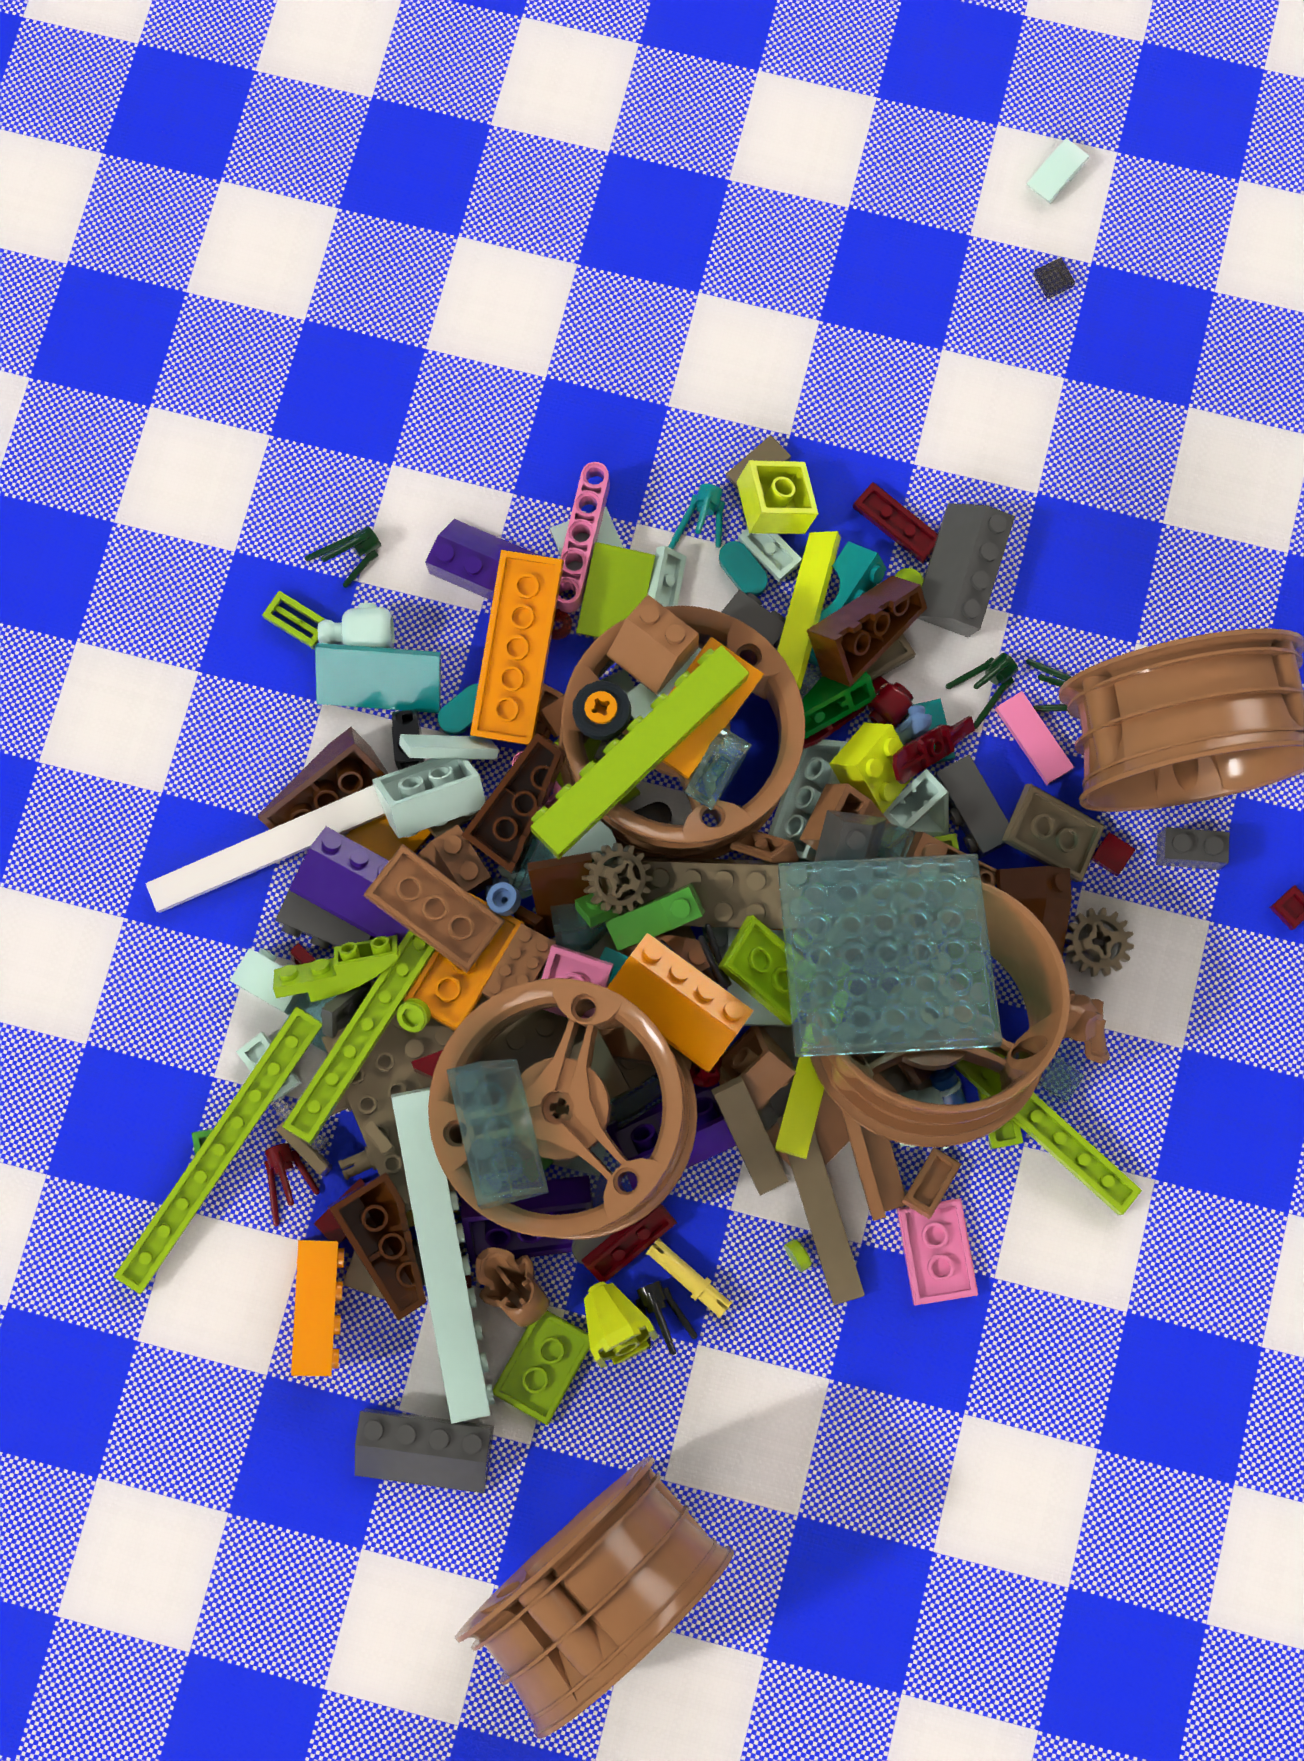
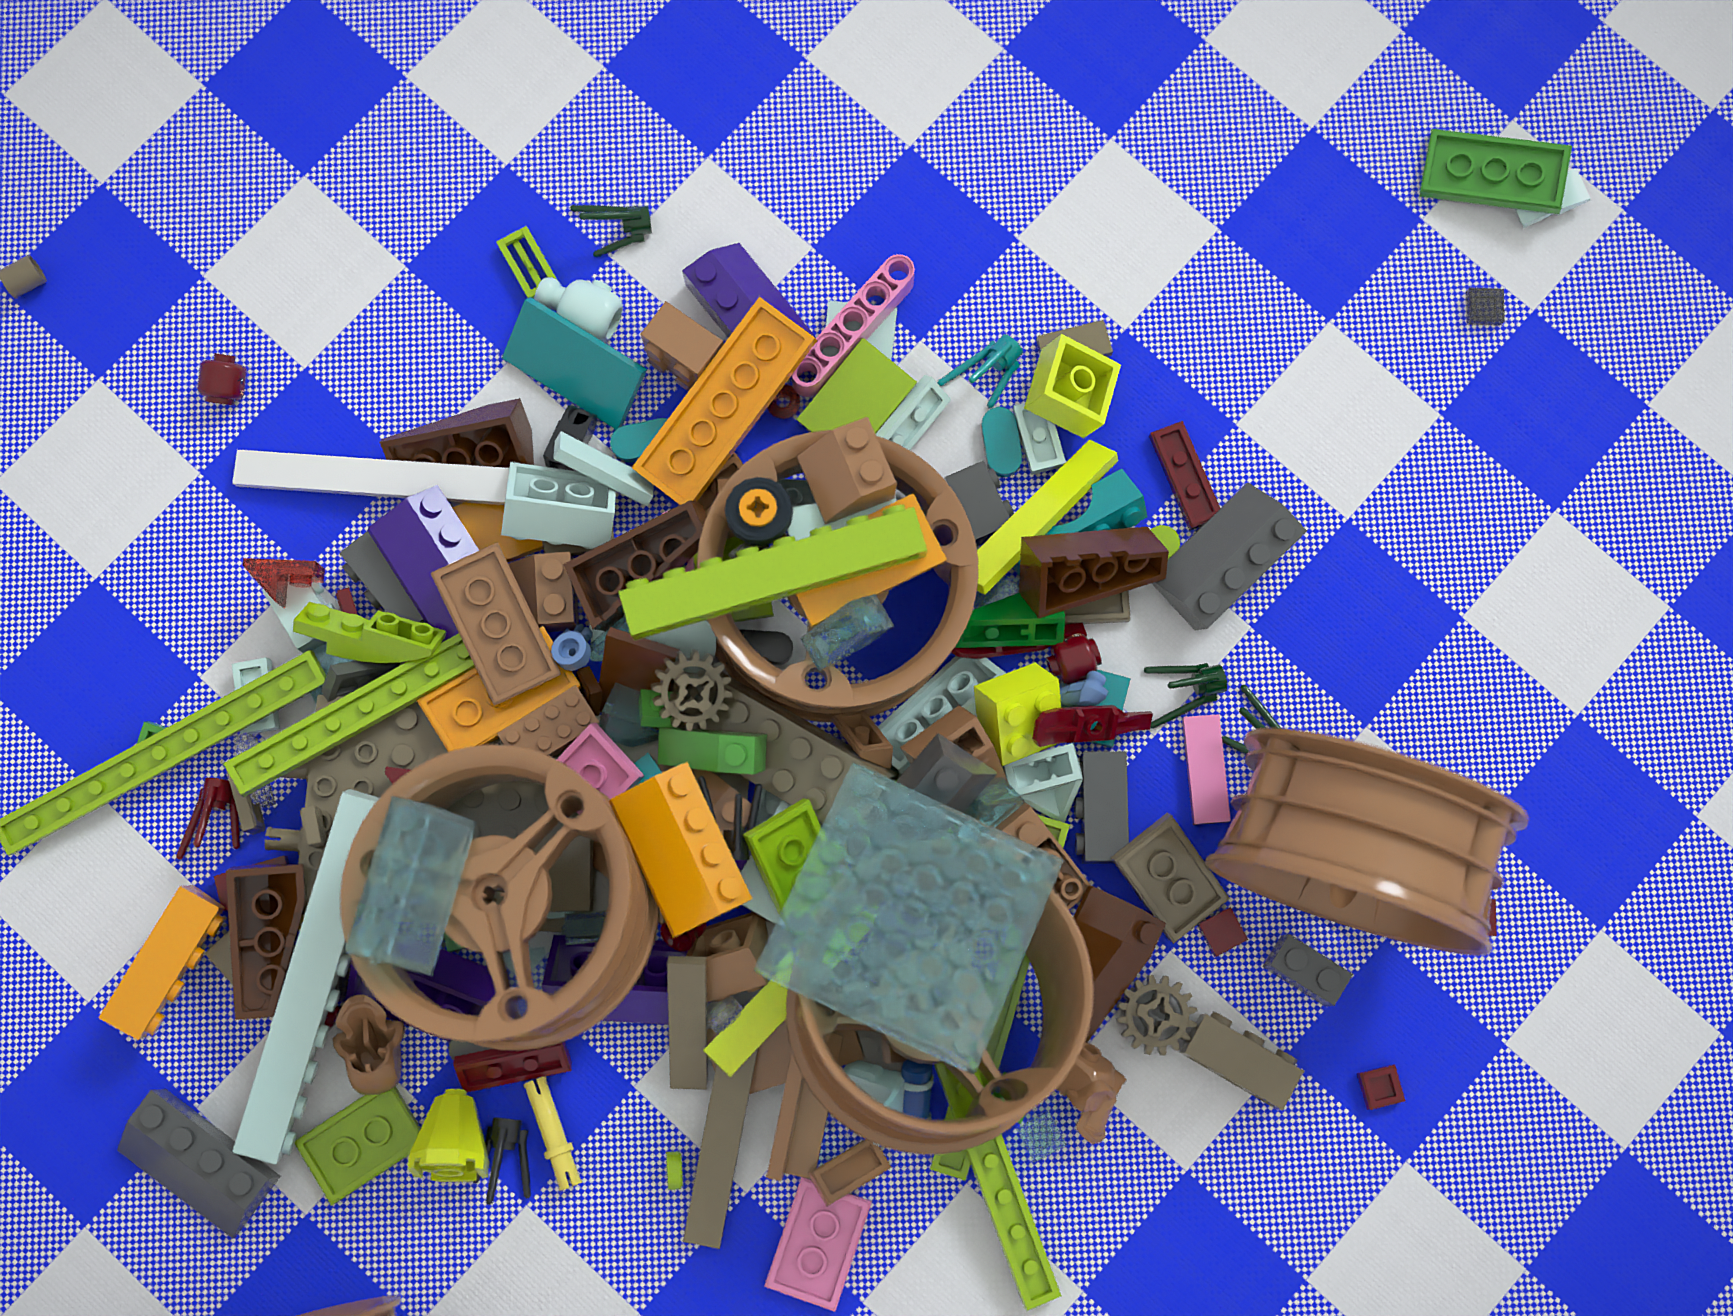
camera: 25 degrees right, 0 degrees up
(103, 834) = (221, 379): none -> dark red head
(234, 962) = (275, 574): none -> clear red slope
(413, 1015) = (417, 720): lime tile -> none
(457, 621) = (679, 345): none -> medium nougat brick
(775, 1113) = (724, 1014): none -> clear tile
(1007, 170) = (1495, 171): none -> bright green tile
(1181, 941) = (1242, 1060): none -> dark tan brick

